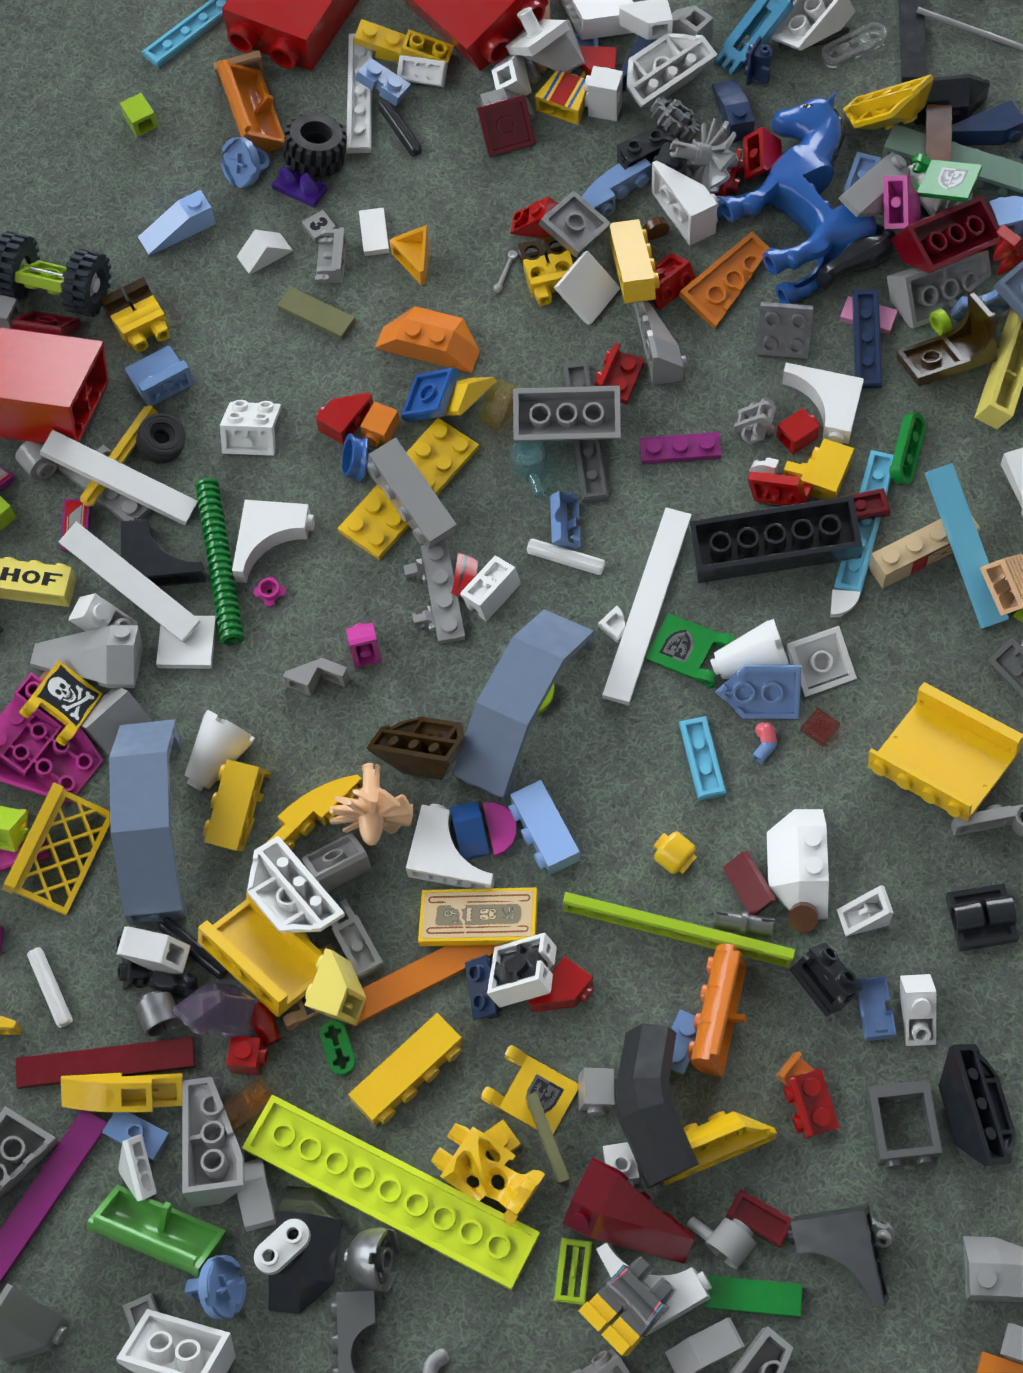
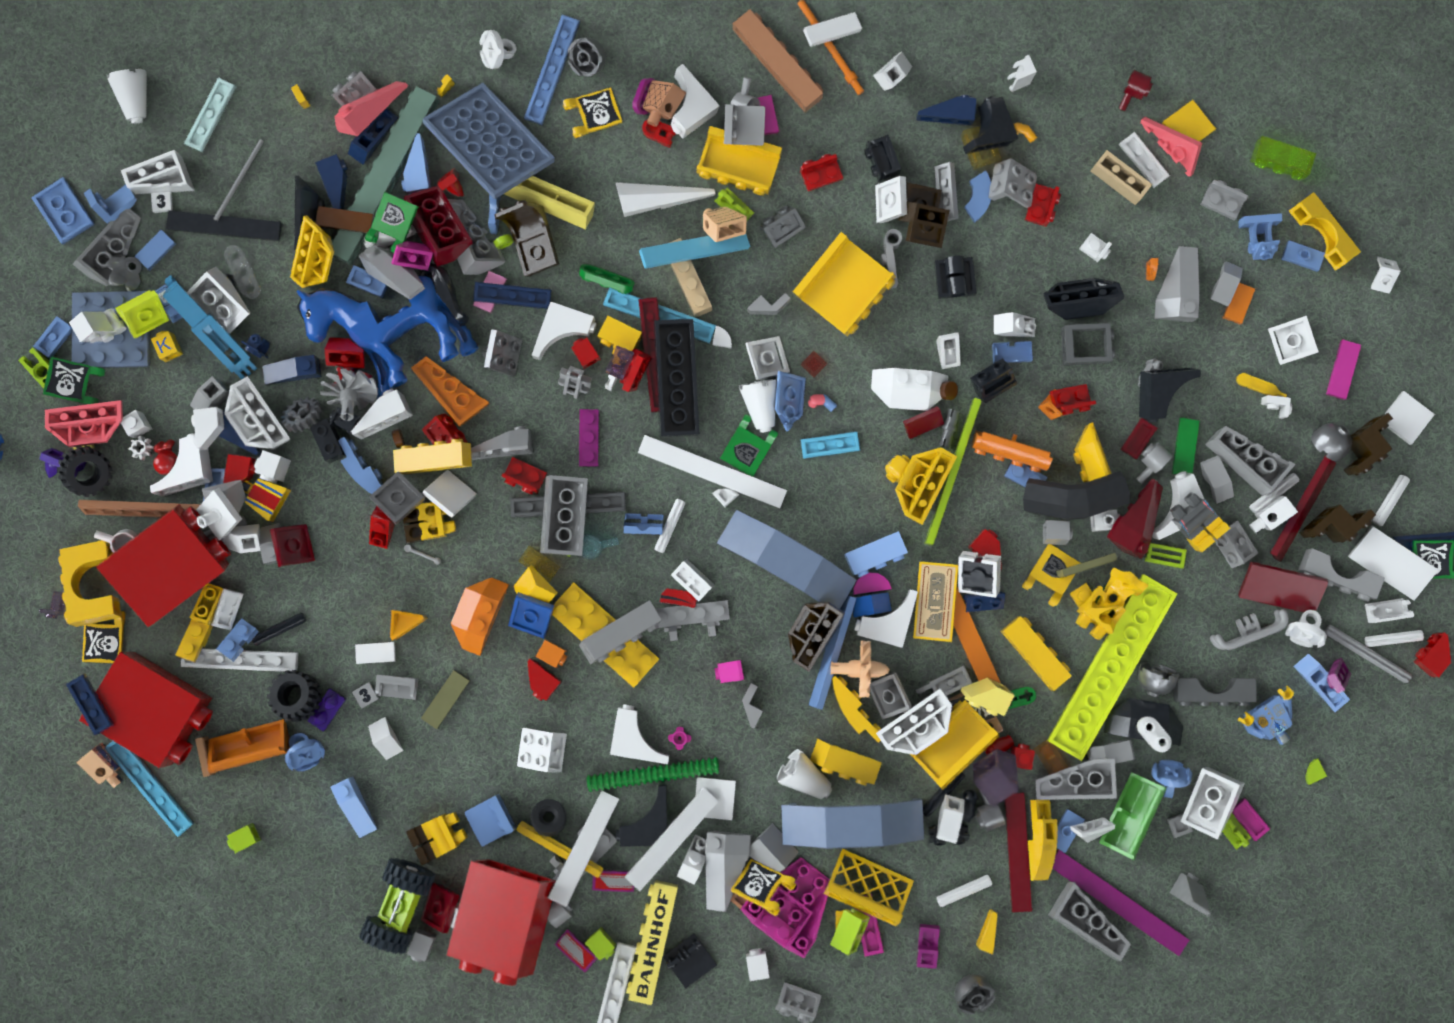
camera: 90 degrees left, 20 degrees up
(355, 457) = (579, 672): blue piece -> none
(399, 778) = (831, 655): none -> medium blue tile
(655, 880) = (923, 482): none -> yellow wedge
(786, 463) = (619, 362): none -> bracket
(896, 647) = (761, 306): none -> light grey slope

